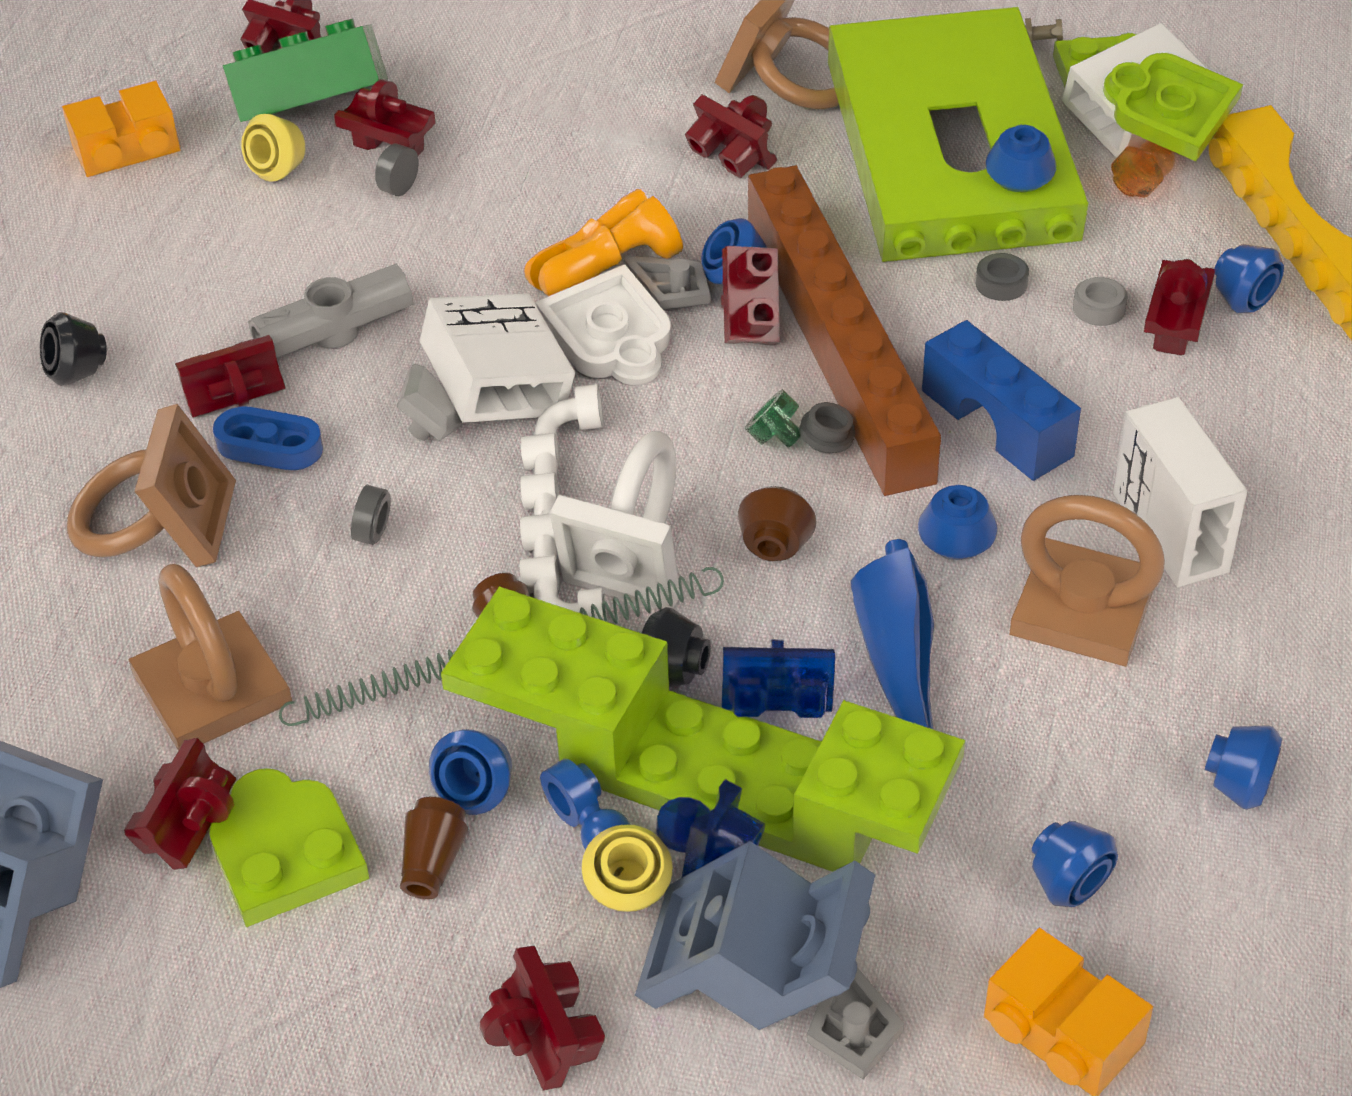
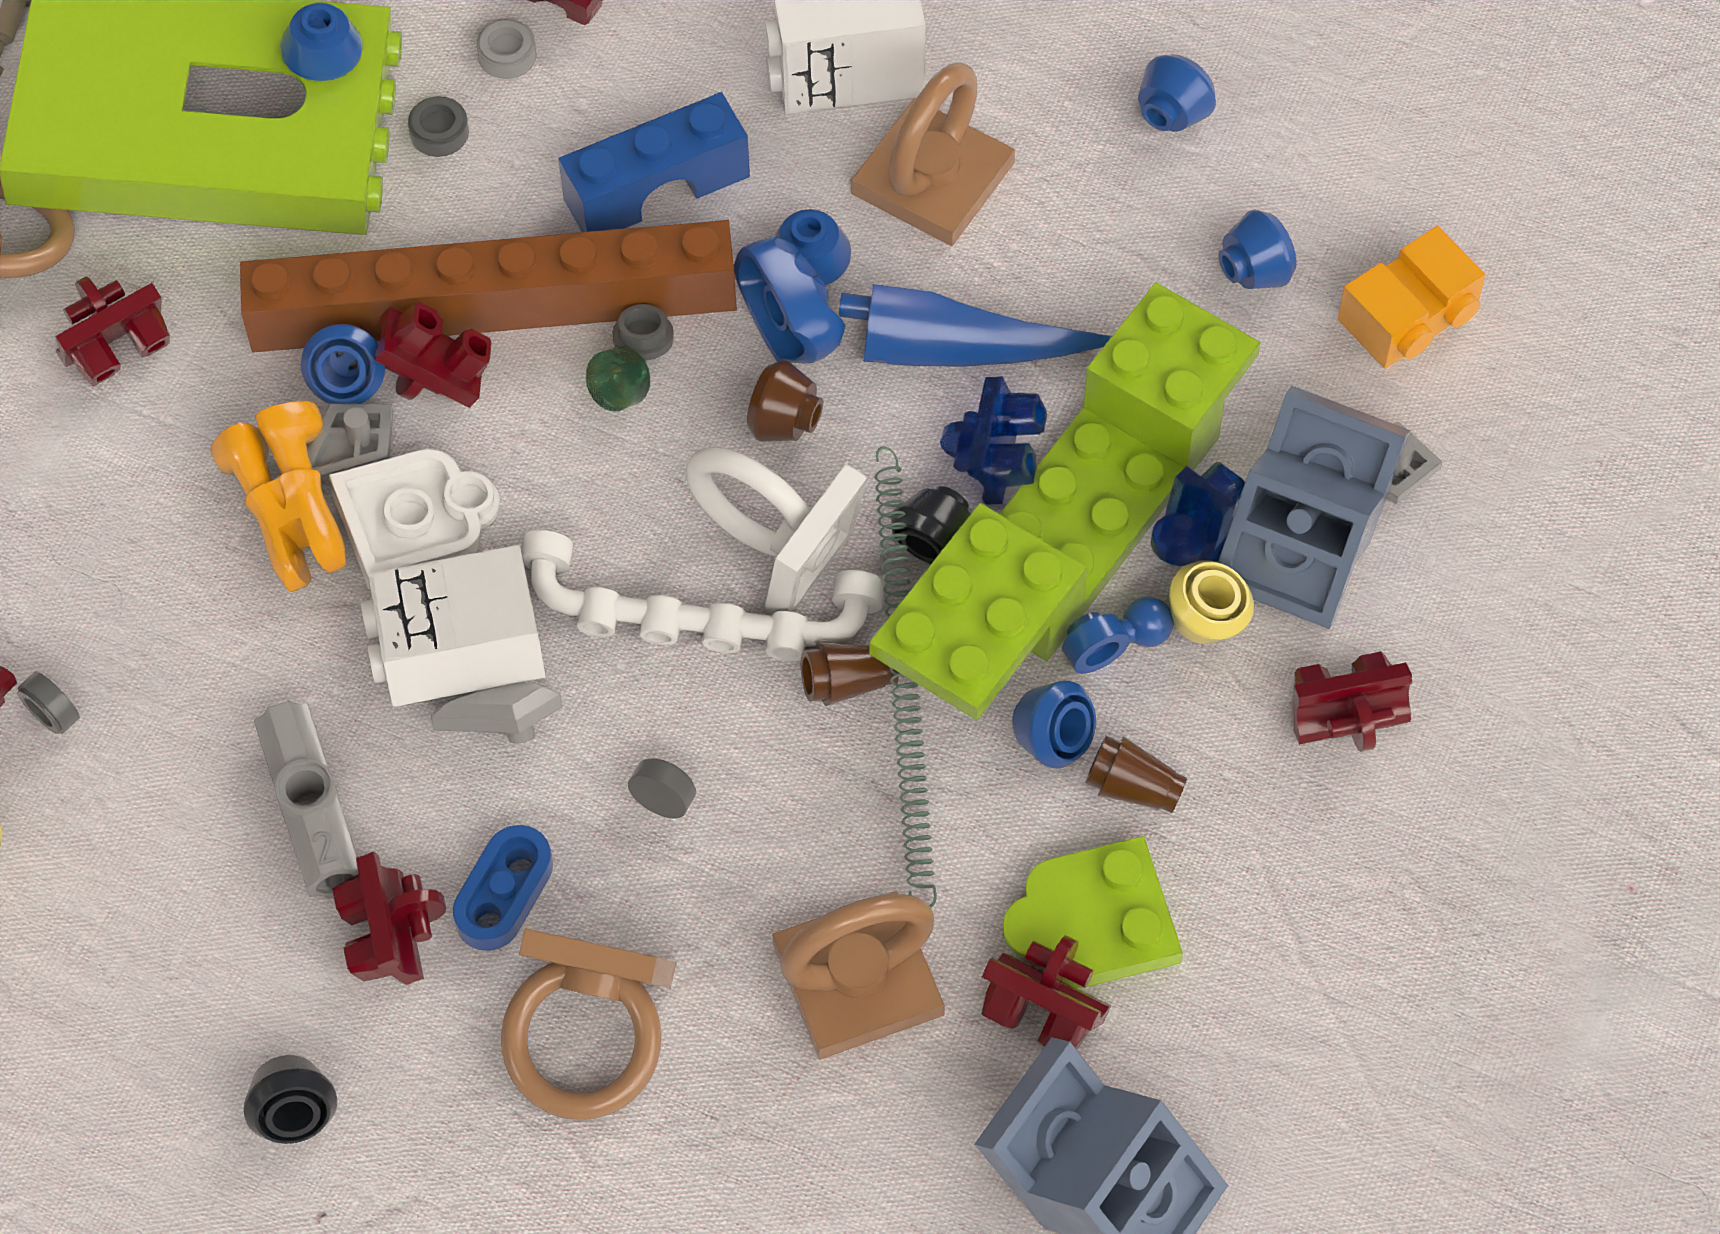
camera: 80 degrees left, 15 degrees up
(881, 501) = (787, 301): none -> blue piece

